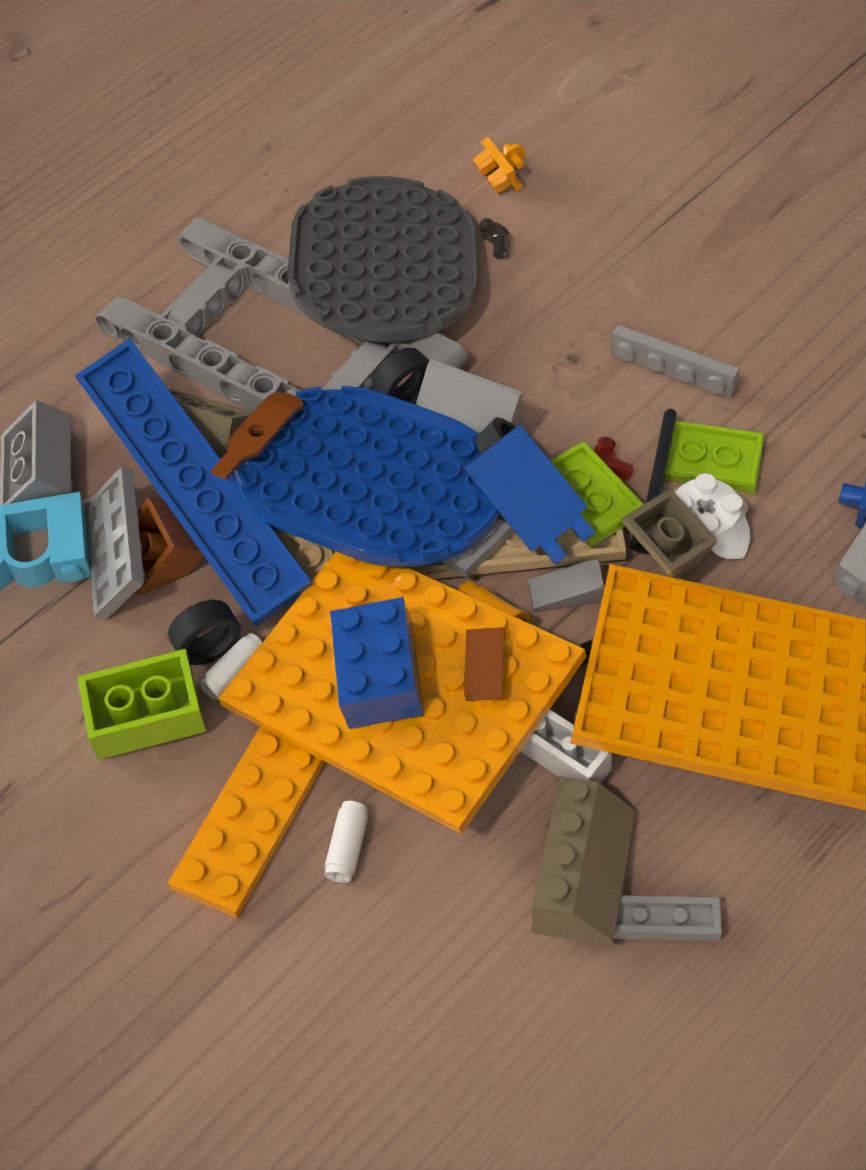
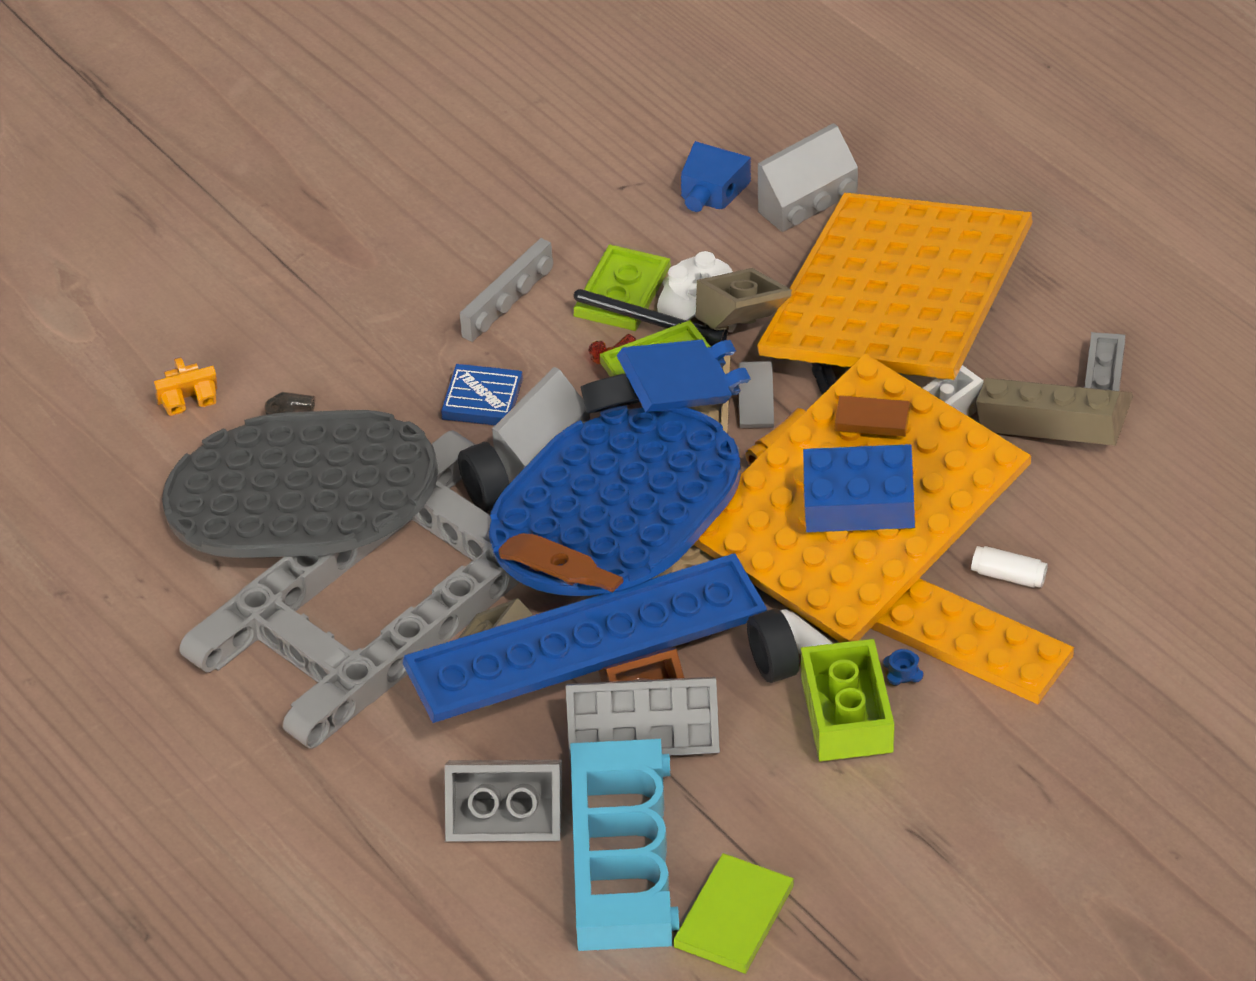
camera: 85 degrees left, 10 degrees down
(199, 749) = (903, 667): none -> blue plate
(535, 369) = (481, 394): none -> blue tile

